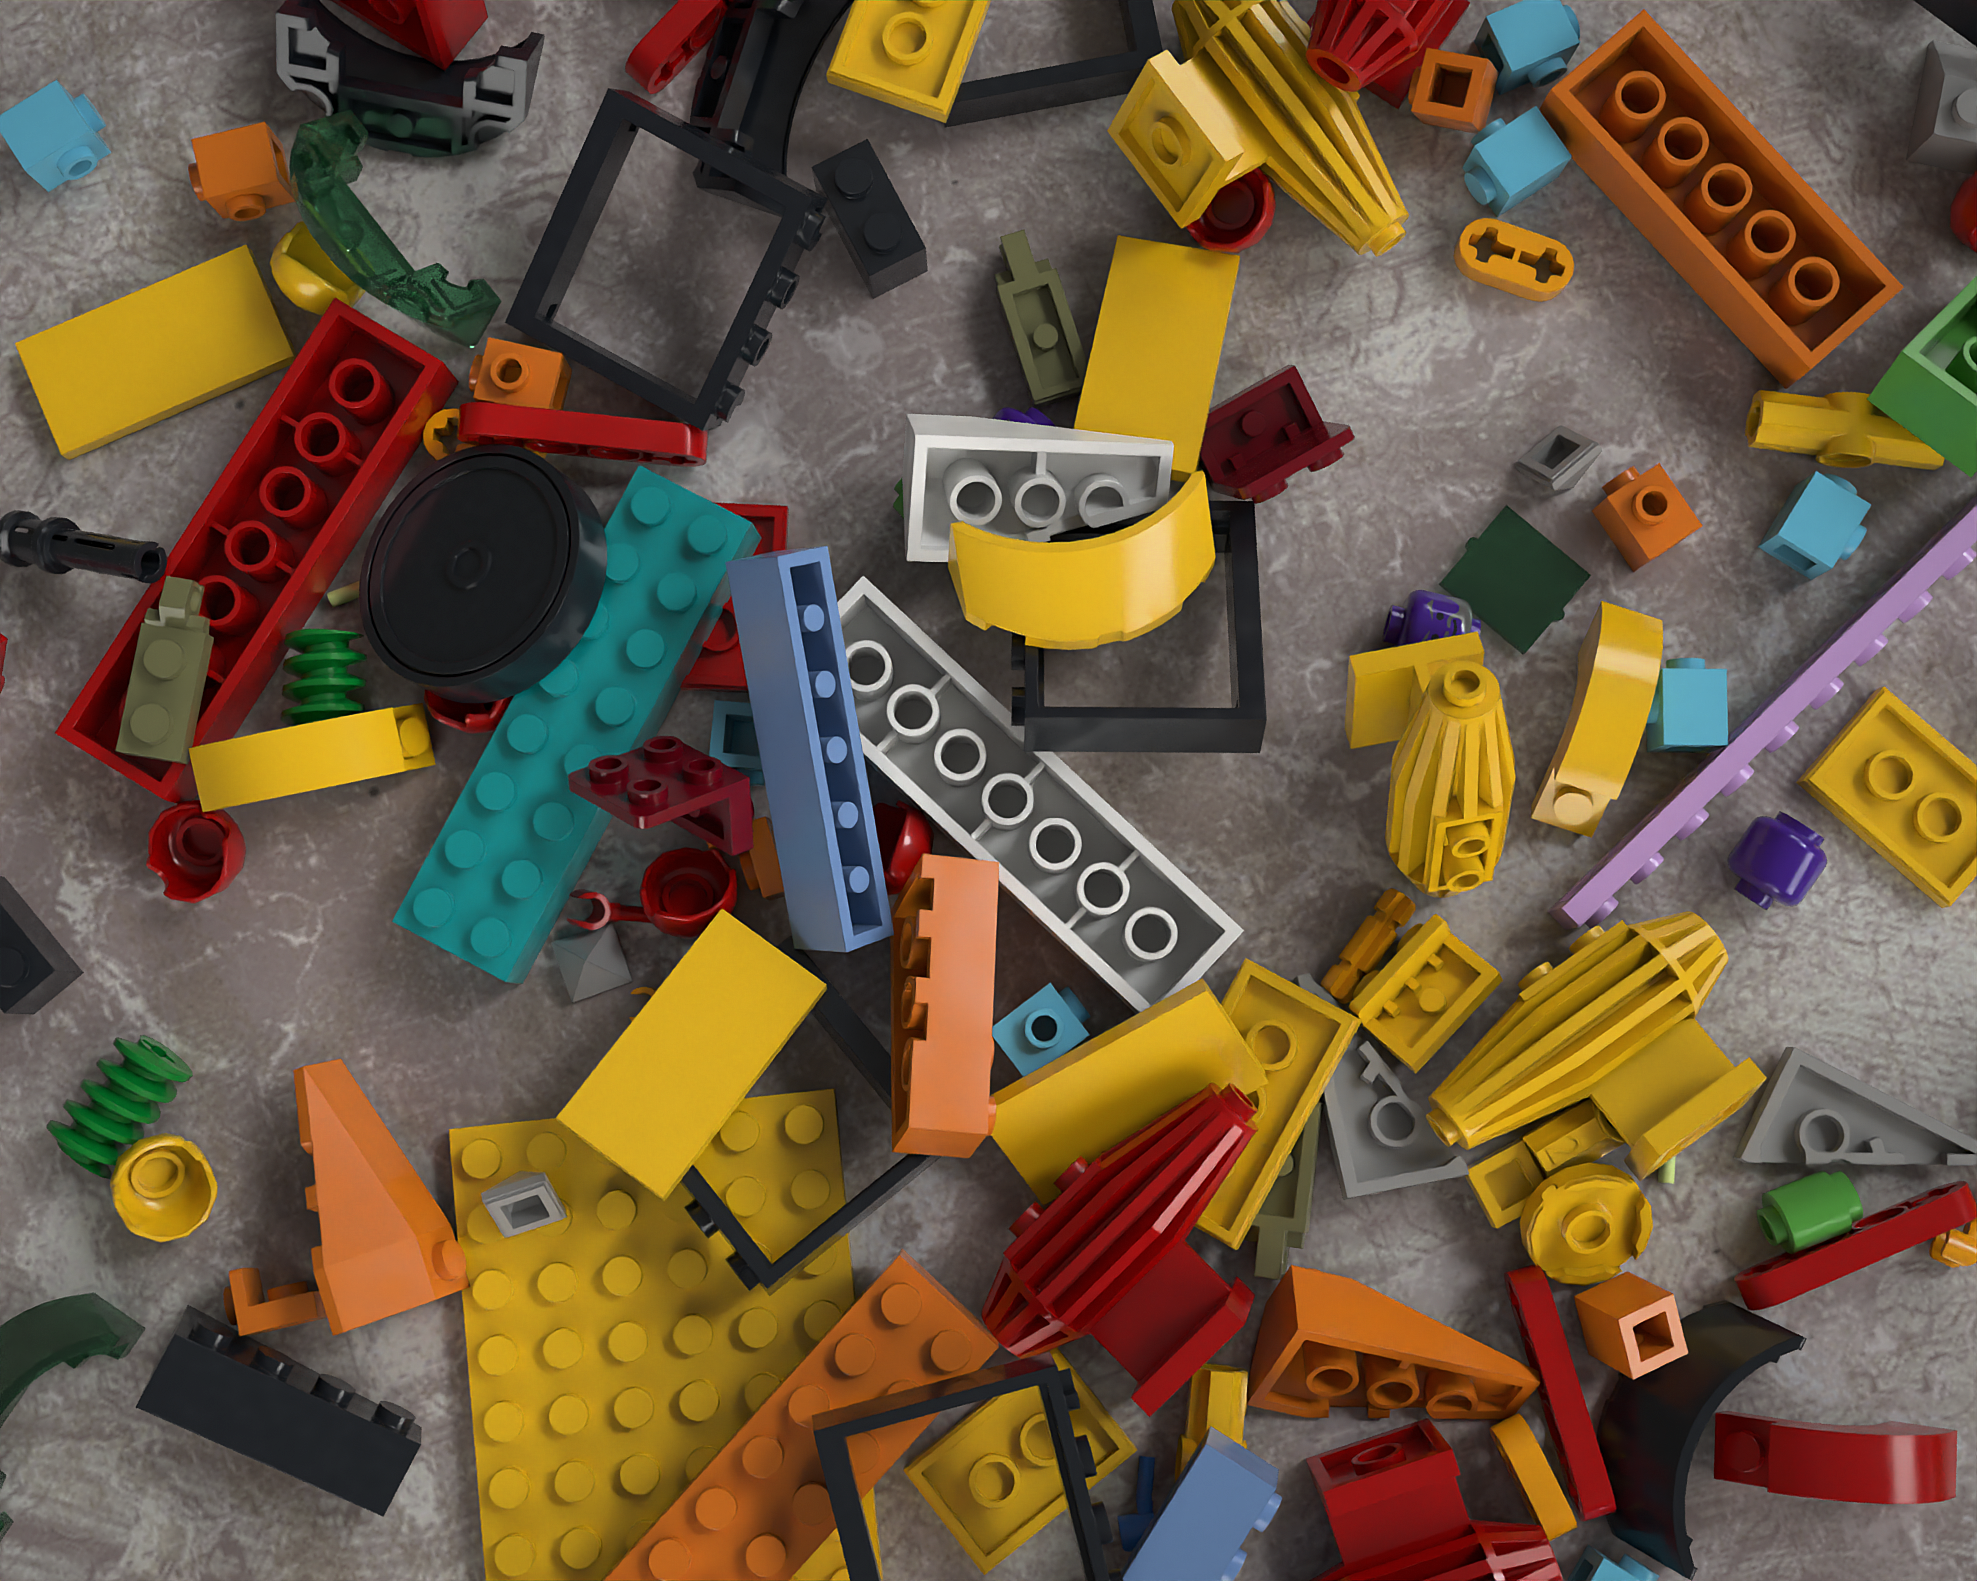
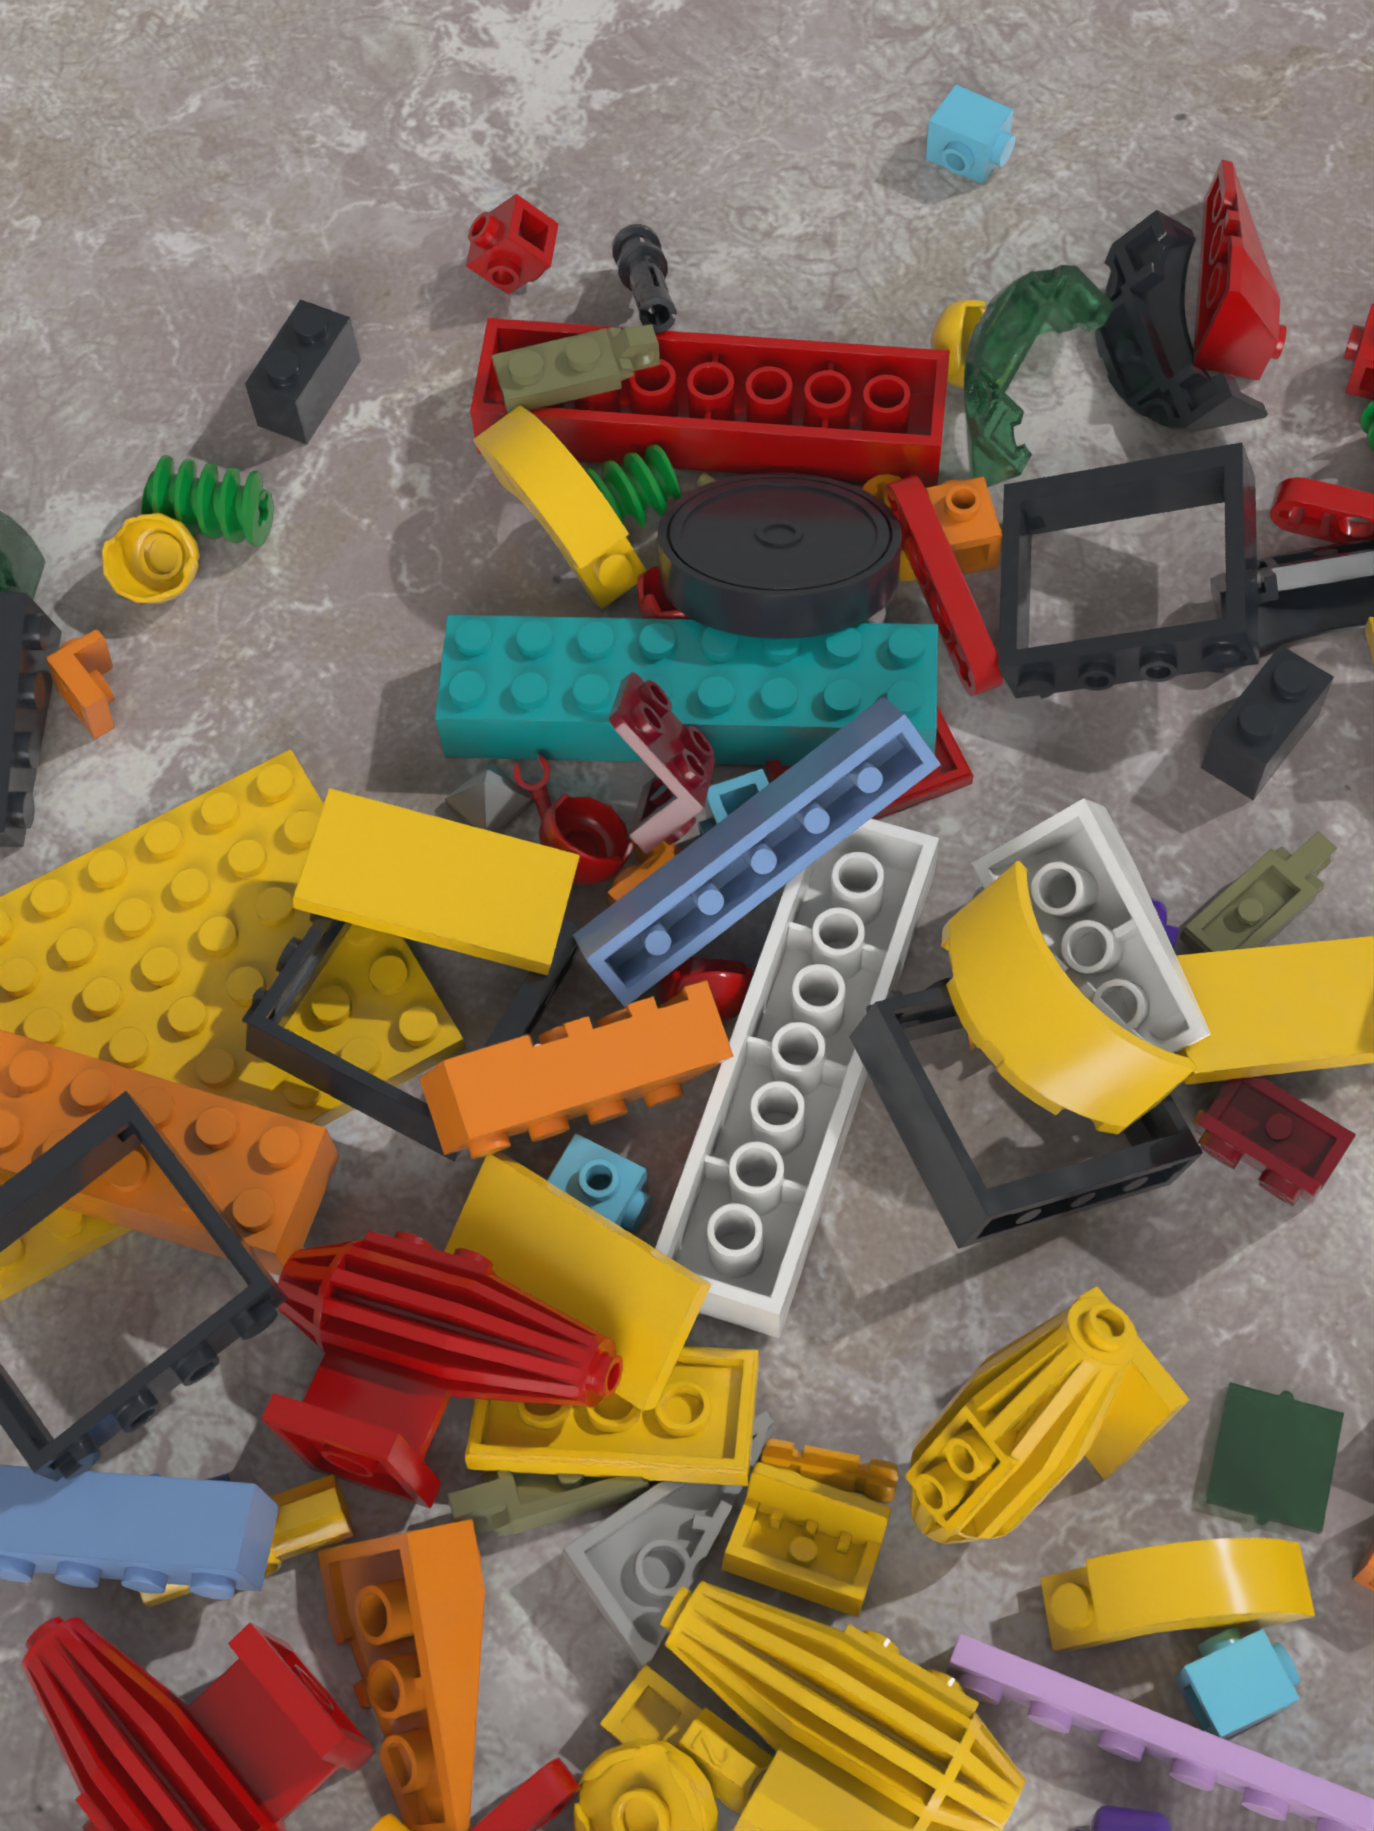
camera: 70 degrees right, 20 degrees down
(156, 352) = (836, 273): yellow tile -> none
(195, 851) = (442, 467): red hair -> none
(241, 172) = (1013, 251): orange brick -> none
(379, 1224) = (183, 718): orange wedge -> none
(523, 1203) = (246, 820): light grey slope -> none
(998, 1473) = (148, 1315): yellow tile -> none
(1427, 618) = (1194, 1374): dark purple head -> none

